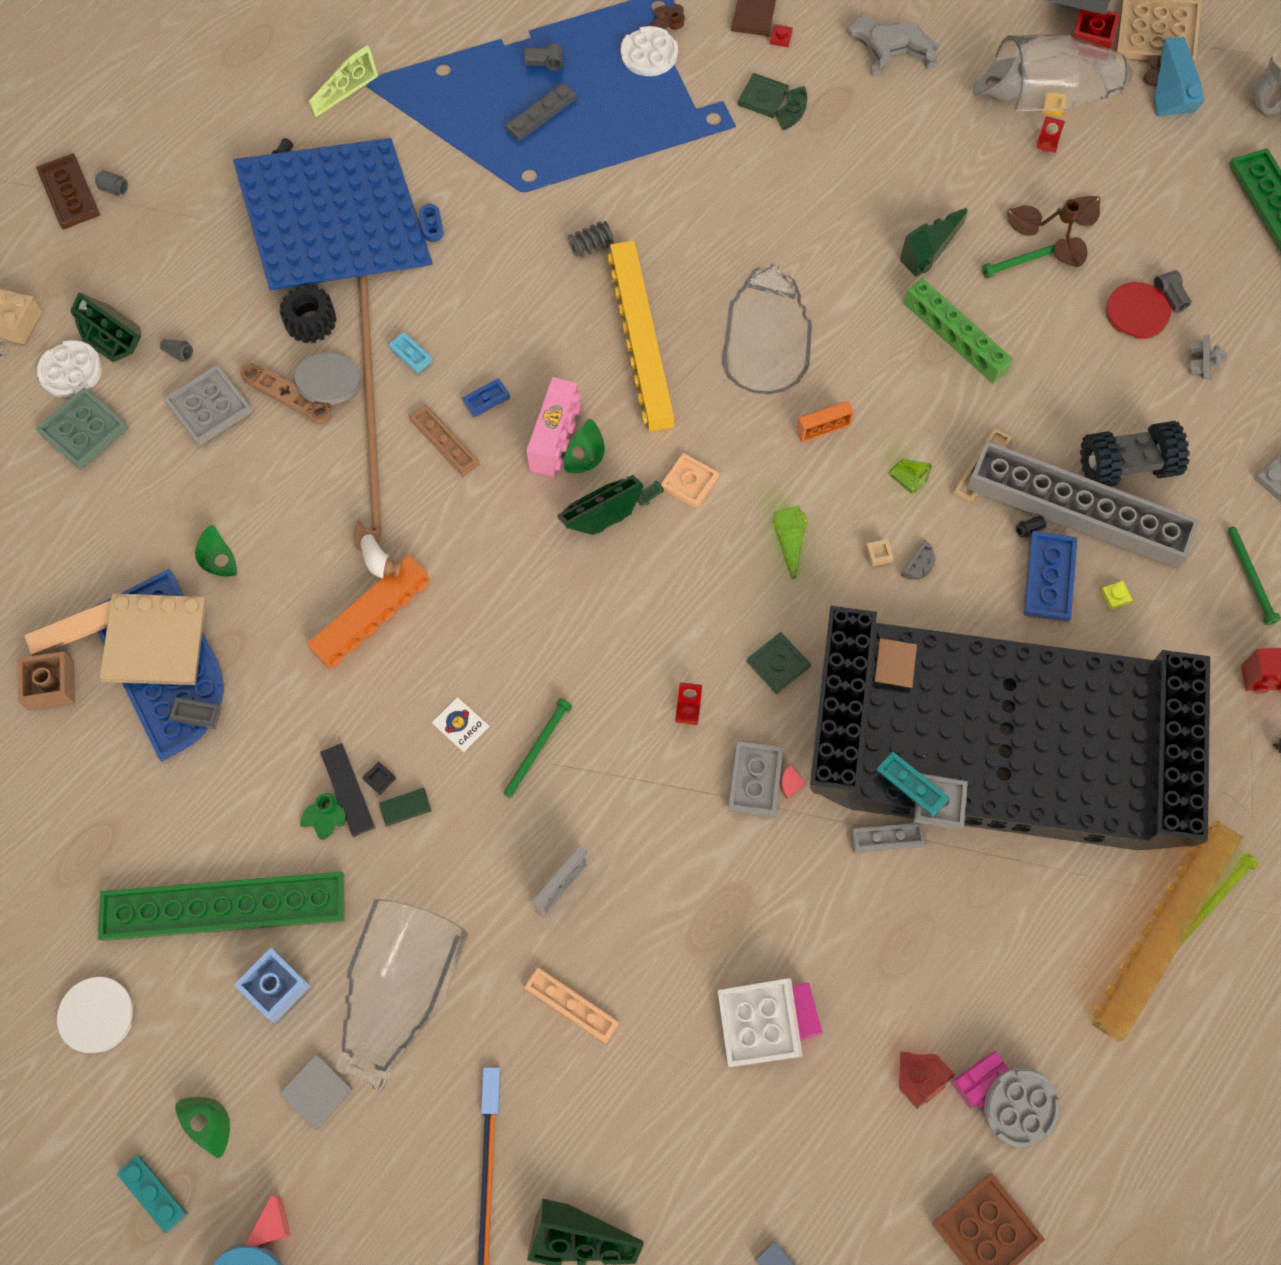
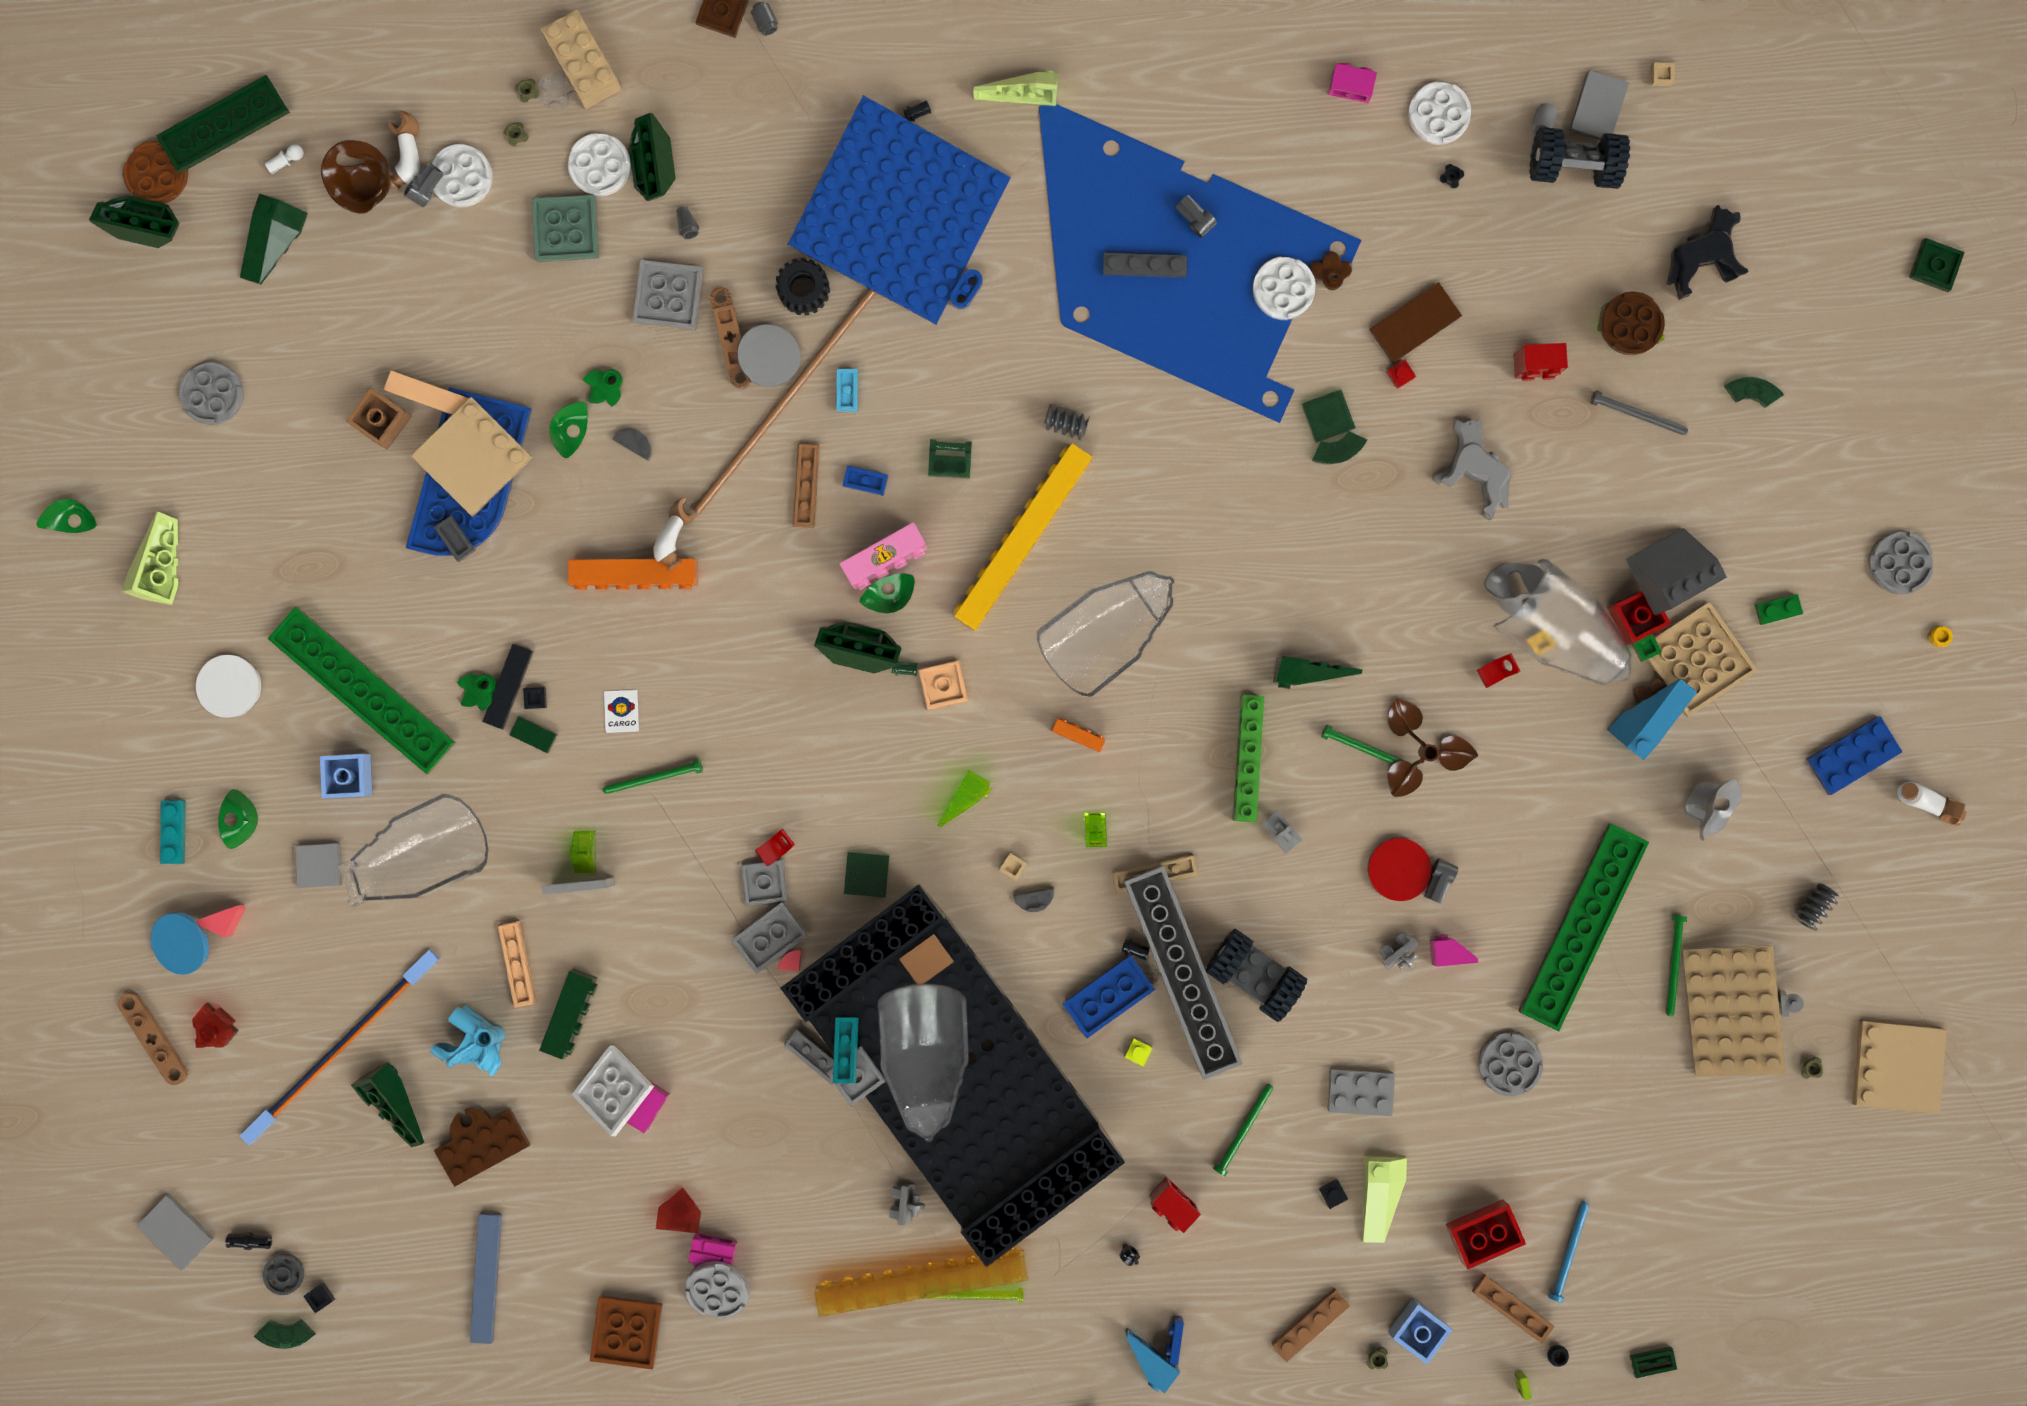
camera: 40 degrees right, 20 degrees up
(216, 509) = (602, 389): none -> green plate
(278, 524) = (635, 442): none -> flat silver tile
(537, 336) = (949, 466): none -> clear green plate
(538, 857) = (583, 851): none -> clear neon green slope
(607, 1103) = (477, 1044): none -> medium azure helmet
(657, 1001) = (568, 1014): none -> dark green brick
(693, 1195) = (480, 1143): none -> reddish brown plate
(707, 744) = (764, 883): none -> light grey tile
(978, 717) = (923, 1053): none -> clear windscreen
(1035, 353) = (1281, 831): none -> light grey hips
(1091, 889) = (908, 1205): none -> light grey hips
(1122, 43) = (1646, 648): none -> green plate
(1235, 326) = (1449, 952): none -> dark pink slope

